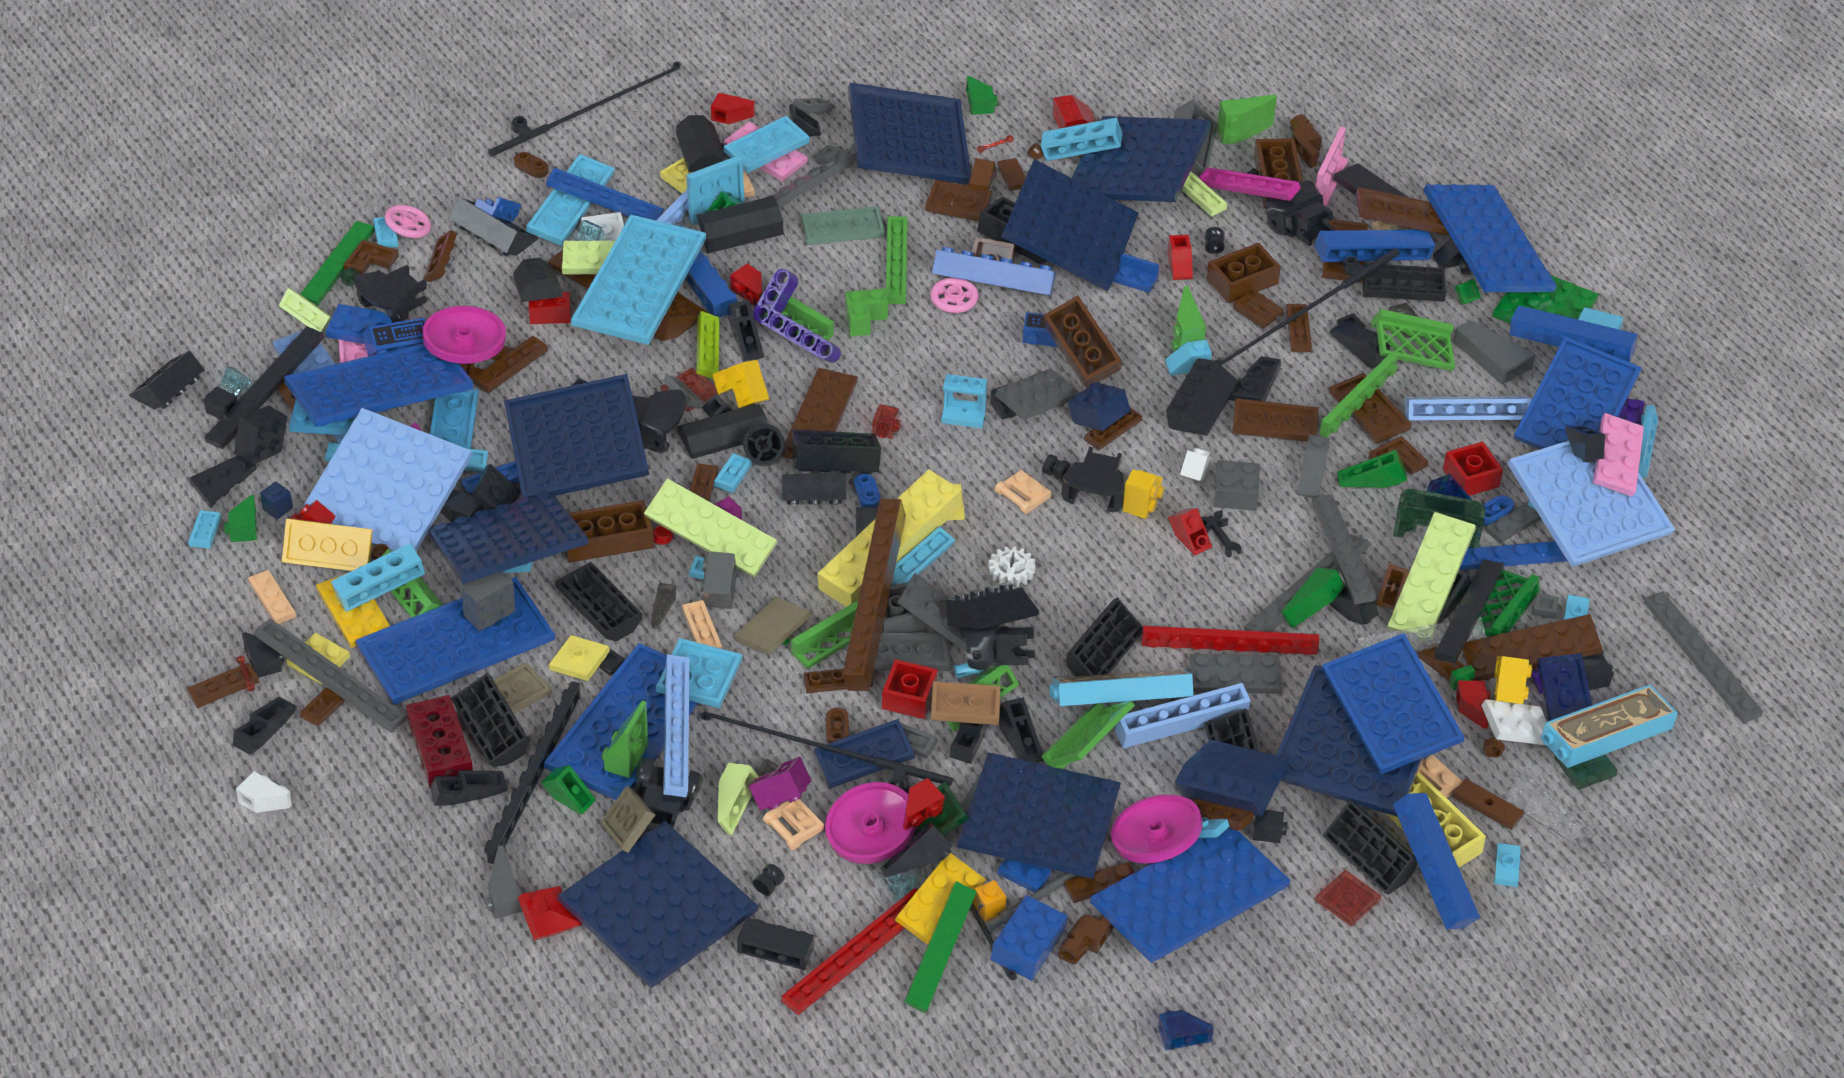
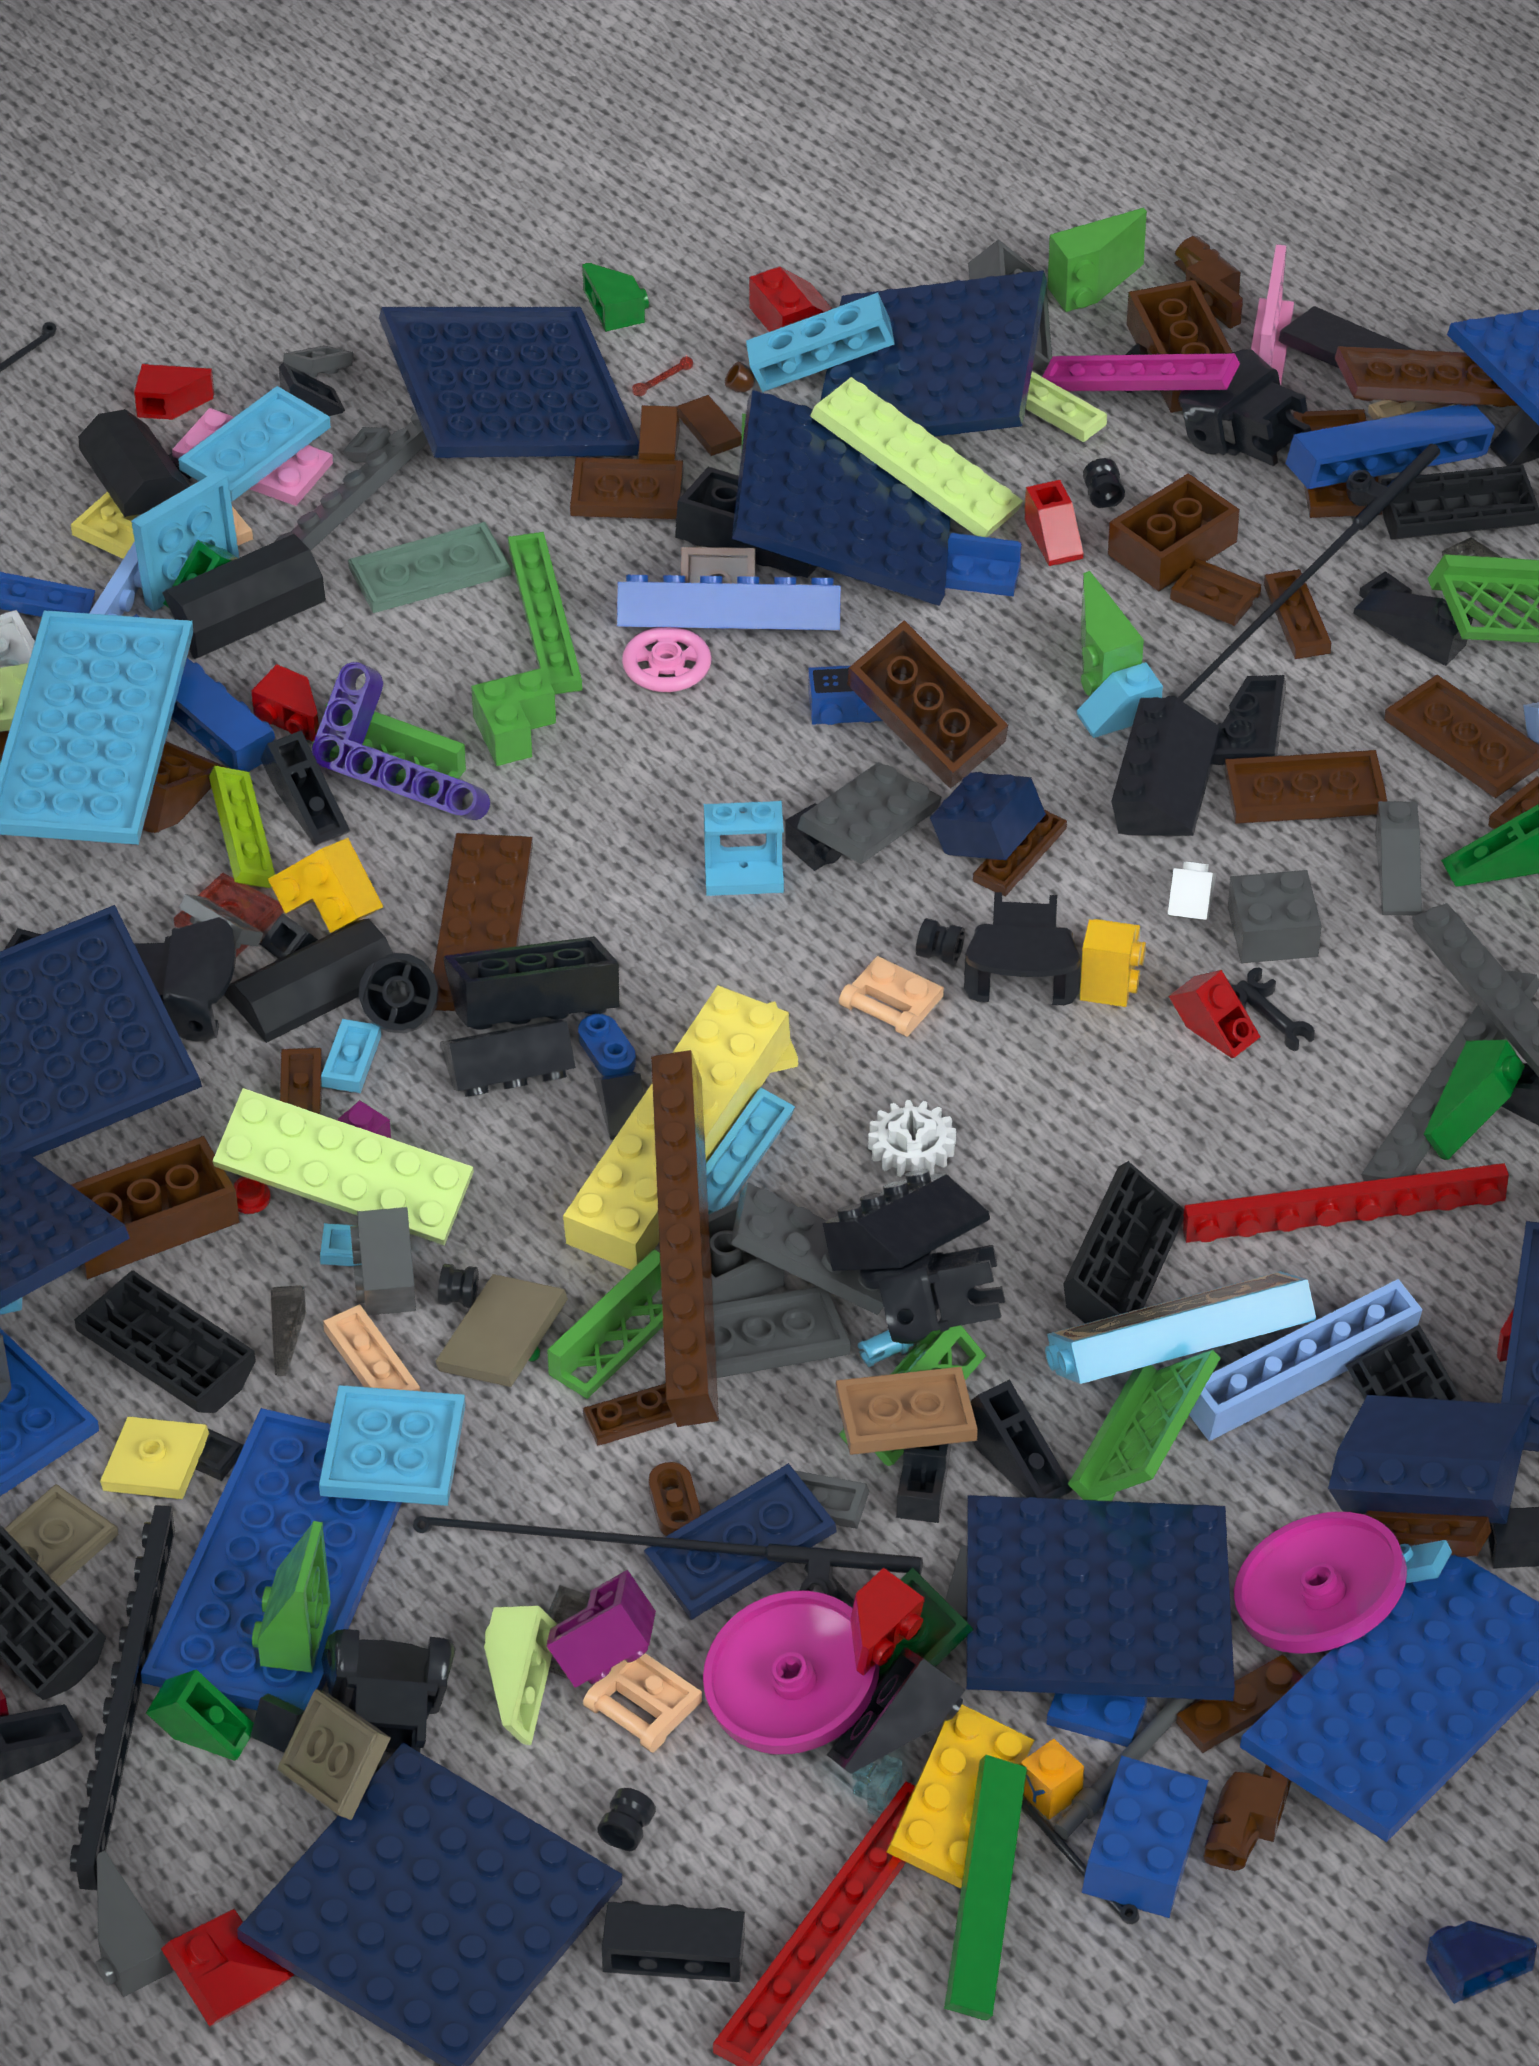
camera: 10 degrees left, 0 degrees up
(604, 798) = (275, 1722): none -> black tile
(676, 726) = (382, 1557): light blue plate -> none
(755, 599) = (458, 1285): none -> black wheel
(886, 421) = (608, 910): clear red brick -> none
(909, 689) = (791, 1402): red brick -> none
(1115, 210) = (916, 458): none -> yellowish green plate
(1219, 671) = (1363, 1259): dark grey plate -> none
(1358, 395) = (1442, 720): bright green plate -> none

